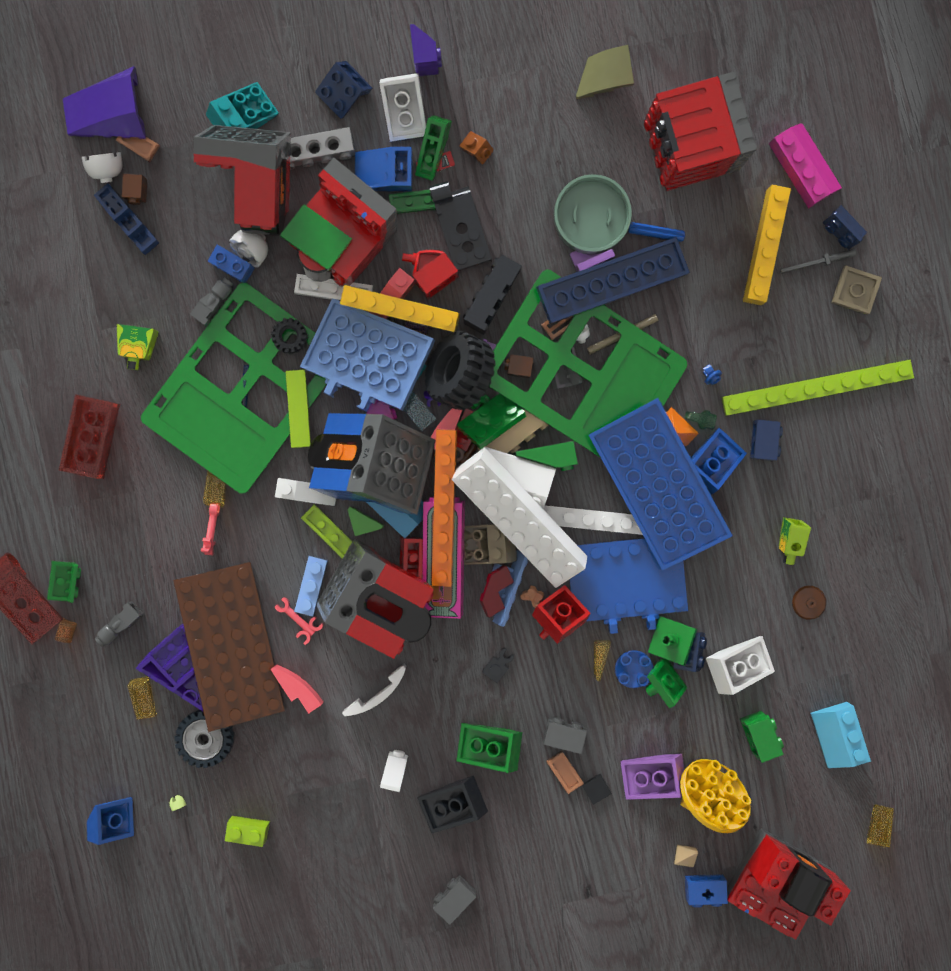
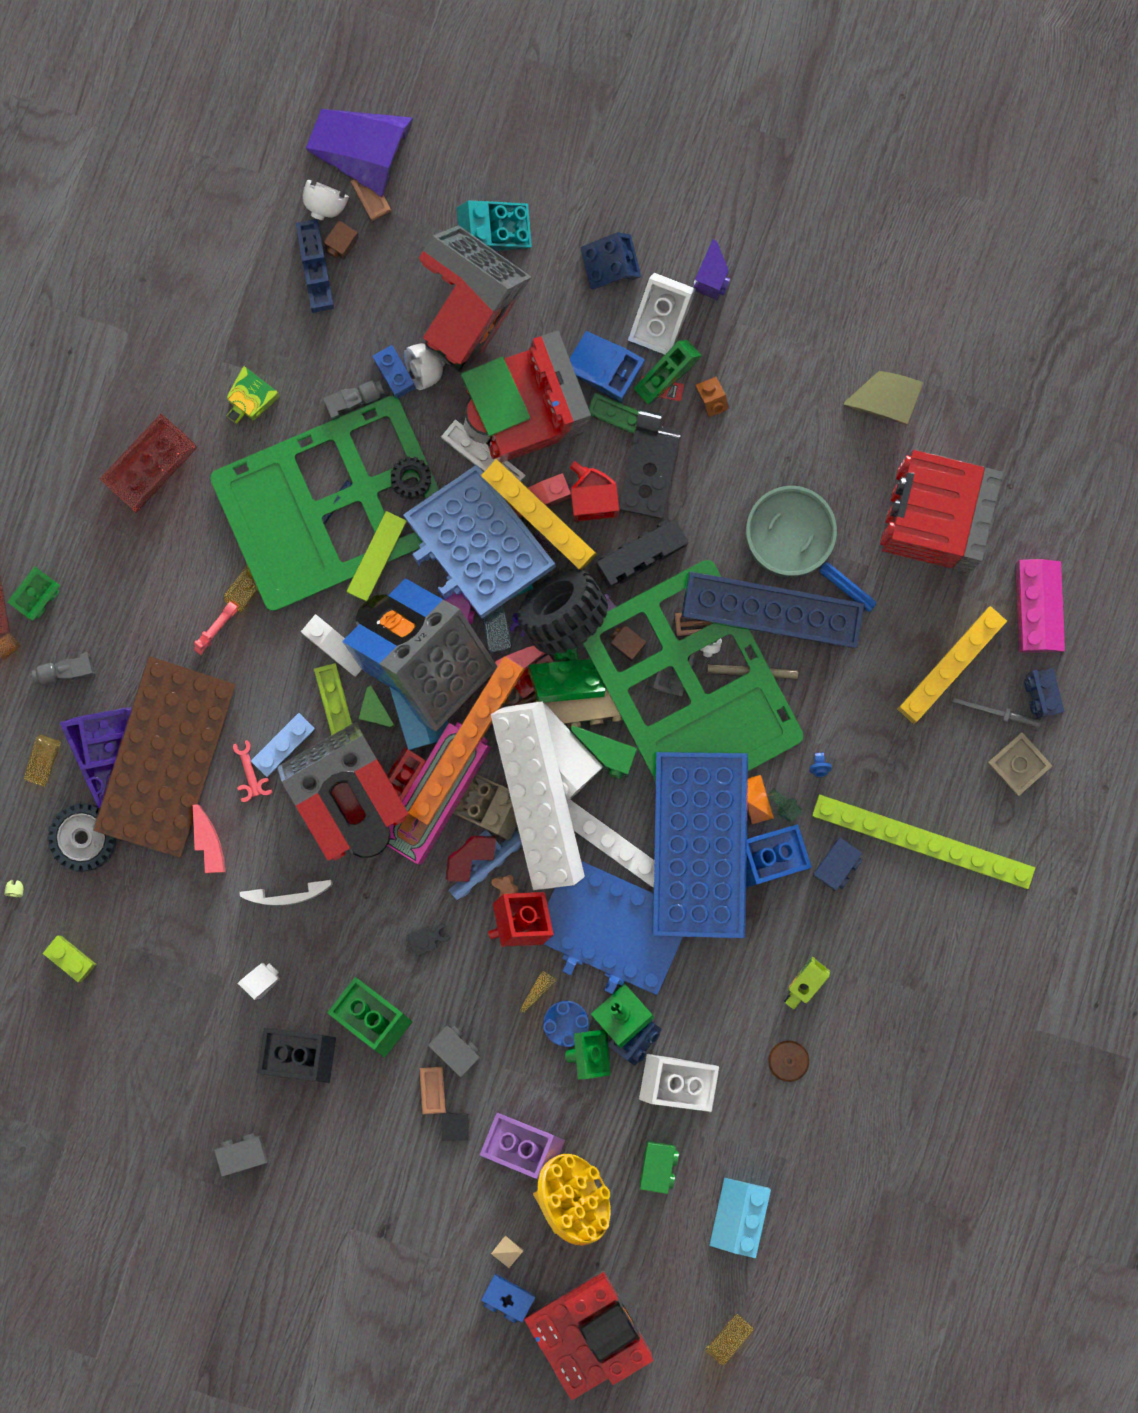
camera: 25 degrees right, 5 degrees down
(323, 141) = (560, 301): light grey brick -> none
(584, 261) = (755, 574): medium lavender panel -> none

